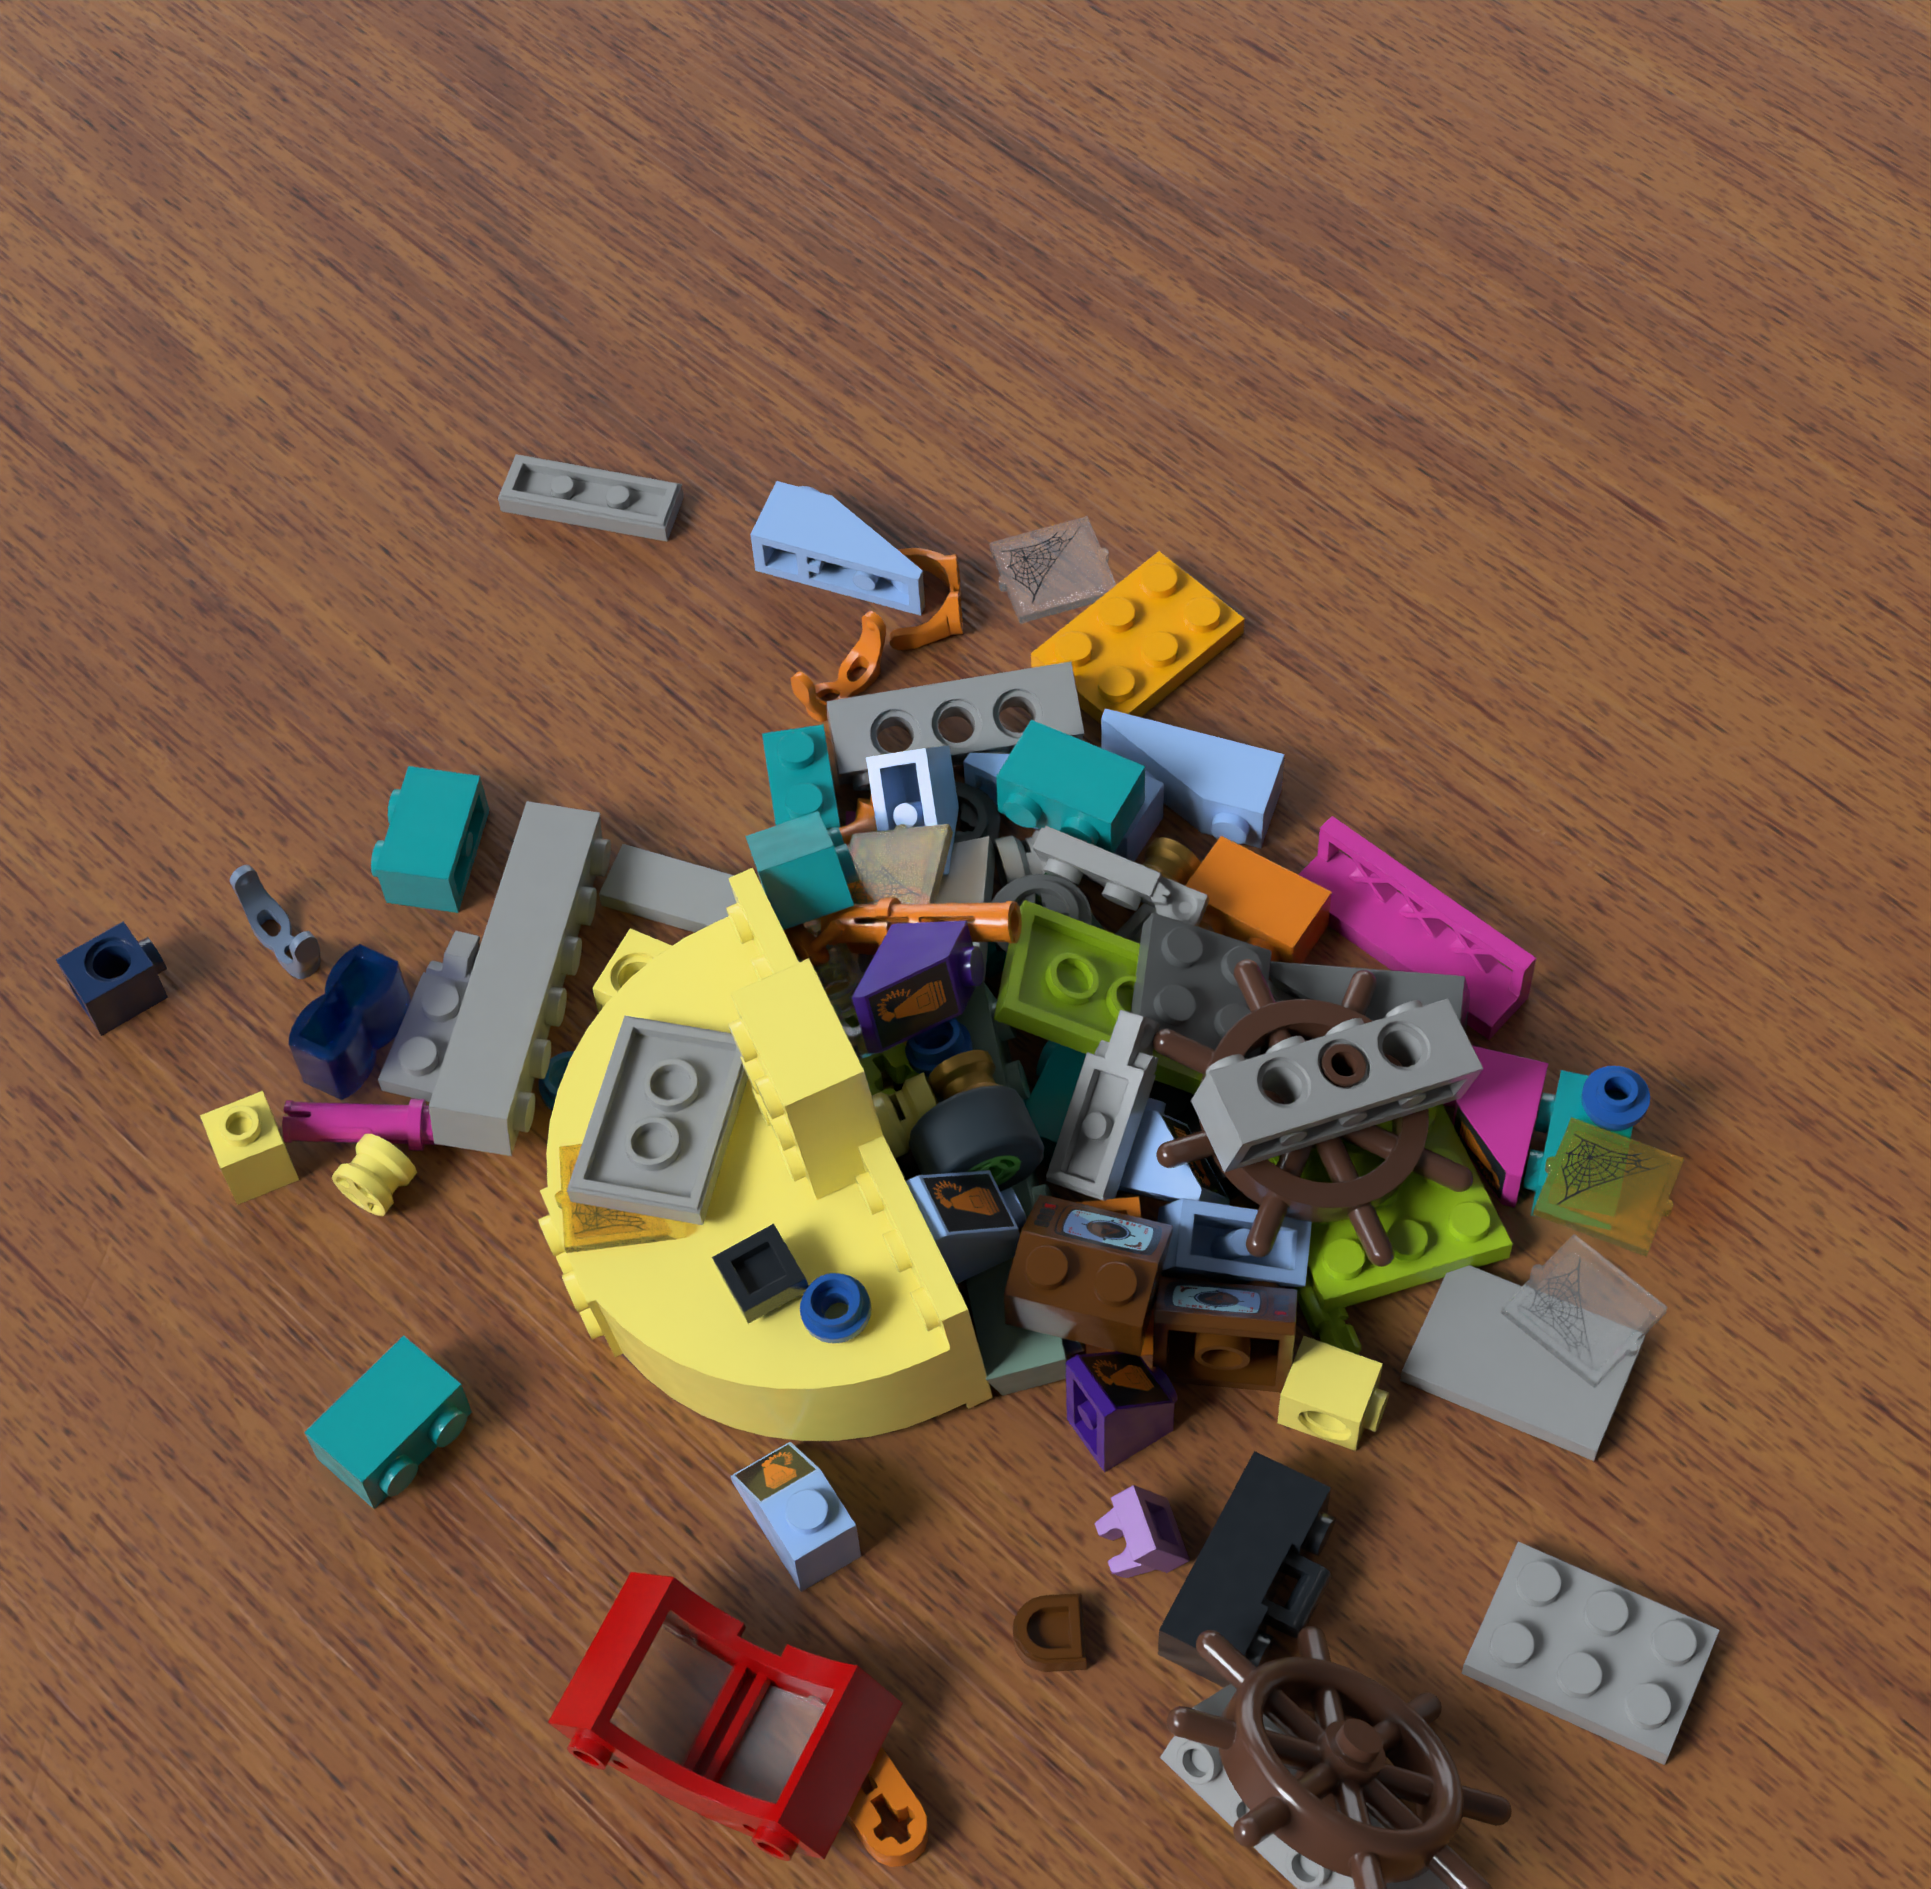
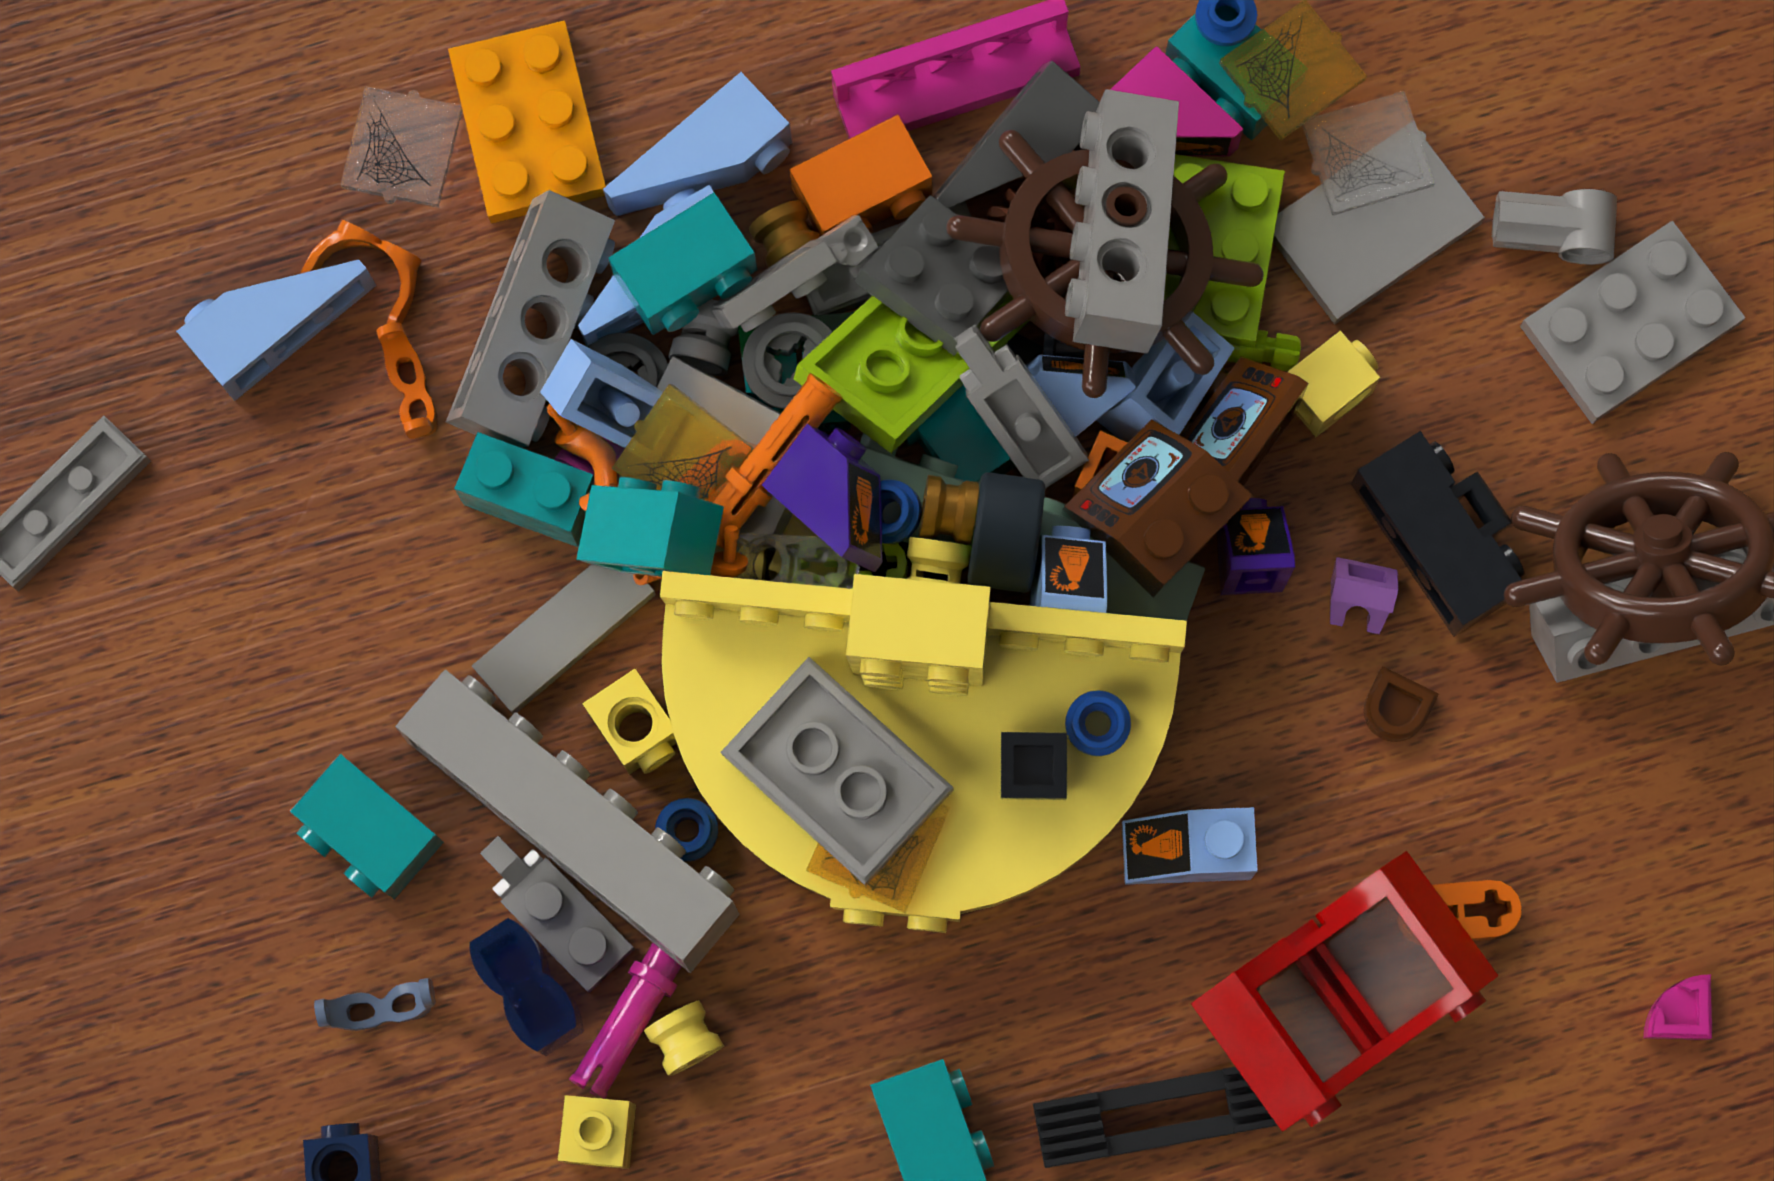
camera: 60 degrees left, 20 degrees up
(460, 1552) = (1073, 1127): none -> black container
(1644, 1536) = (1574, 225): none -> light grey piece

